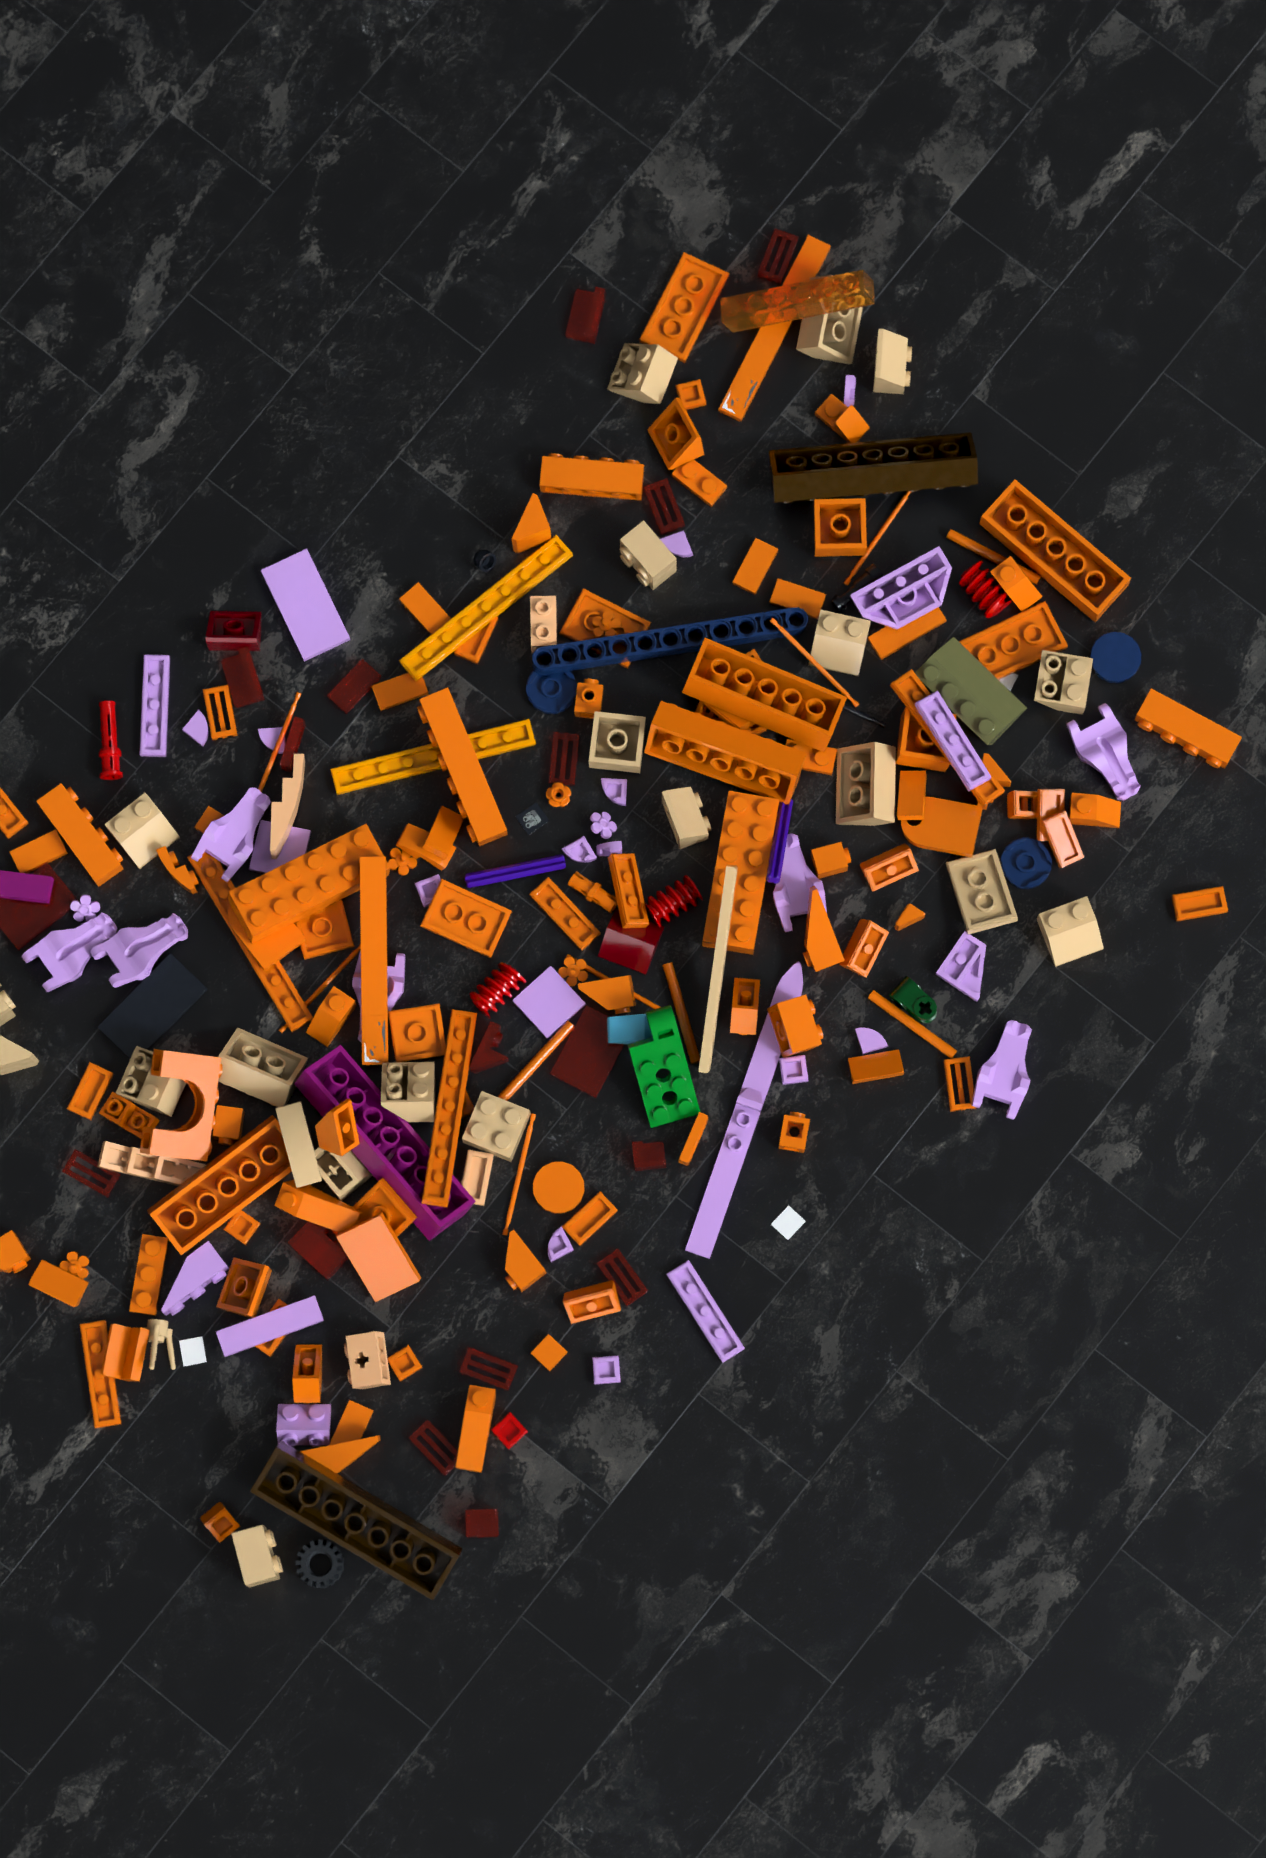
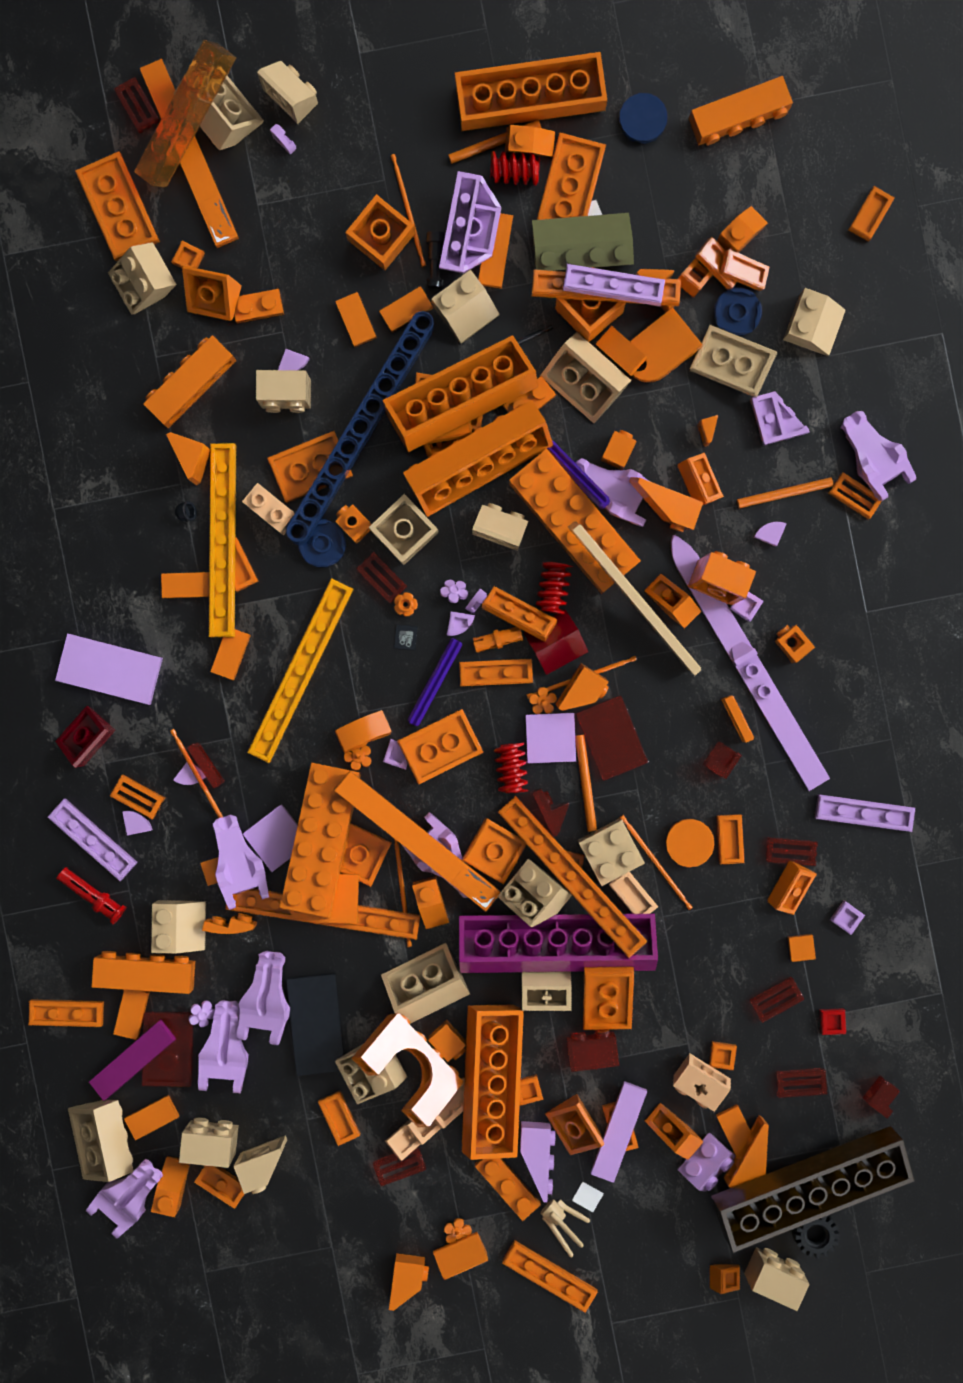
camera: 55 degrees left, 10 degrees up
(125, 1352) = (550, 1249): orange panel -> none
(127, 1115) = (381, 1106): orange slope -> none
(242, 678) = (126, 760): clear red panel -> none
(284, 812) = (253, 814): light nougat slope -> none
(298, 1144) = (511, 1011): tan slope -> none
(316, 1207) = (561, 1030): orange slope -> none
(338, 1129) = (525, 974): orange slope -> none
(354, 686) = (200, 684): clear red tile -> none
(378, 1257) = (636, 1015): tile -> none
(443, 832) = (364, 711): orange tile -> none
(463, 767) = (330, 658): orange brick -> none
(475, 1428) = (814, 1046): orange slope -> none
(521, 1264) = (725, 916): orange slope -> none
(559, 1245) = (730, 876): lavender tile -> none
(586, 315) = (62, 282): clear red panel -> none
(606, 625) = (309, 464): orange plant -> none
(615, 790) = (436, 560): lavender tile -> none
(628, 1029) = (627, 692): medium azure slope -> none
(660, 1052) = (661, 692): green hinge -> none
(671, 526) = (274, 355): clear red tile -> none
(681, 1013) = (638, 650): orange bar -> none
(788, 1222) = (850, 701): white sticker -> none
(814, 662) = (464, 337): orange piece -> none
(842, 419) = (300, 163): orange slope -> none
(873, 467) = (357, 168): dark brown brick -> none
(875, 1066) = (793, 544): orange slope -> none
(889, 867) = (657, 411): orange slope -> none
(911, 997) = (767, 476): dark green piece -> none
(1063, 681) = (633, 168): tan slope -> none
(1106, 751) = (706, 183): lavender animal -> none

